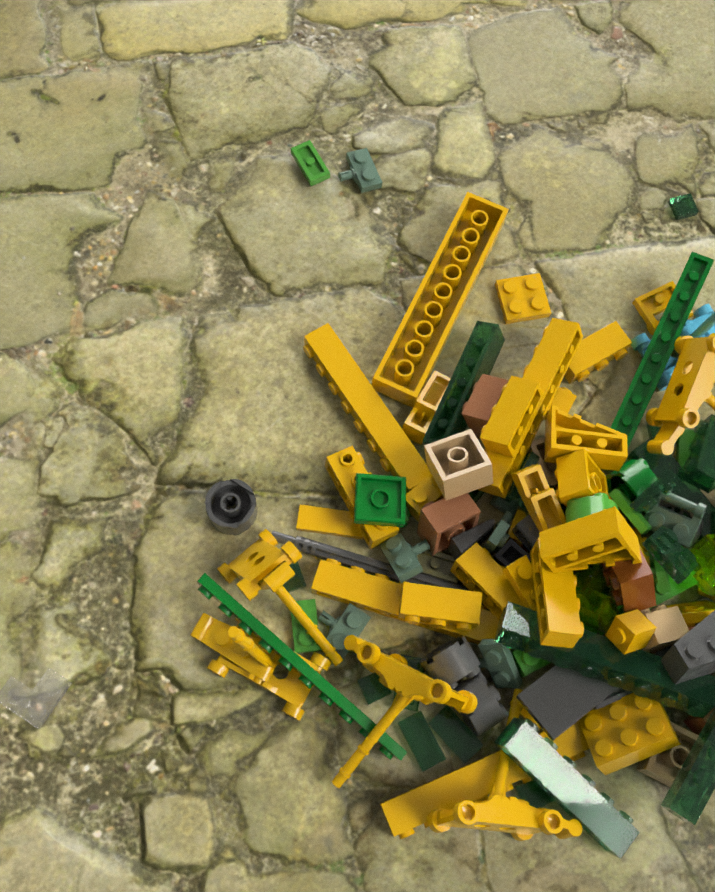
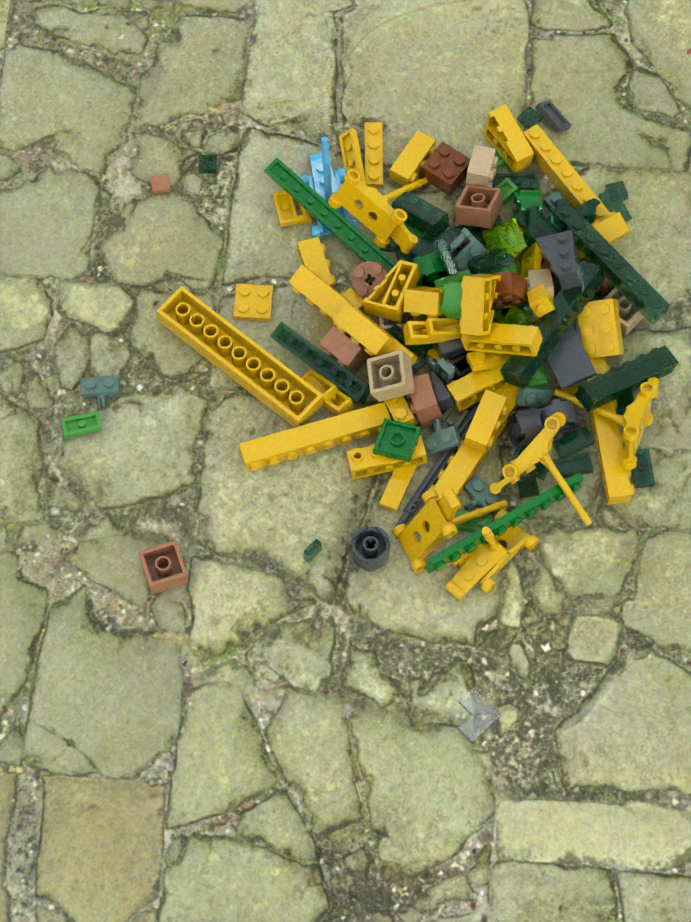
camera: 70 degrees left, 5 degrees down
(152, 284) = (163, 567): none -> nougat brick
(214, 441) = (312, 550): none -> clear green tile
(437, 846) = (643, 472): none -> clear green plate
(597, 407) = (363, 273): none -> nougat brick
(637, 165) = (160, 184): none -> nougat tile

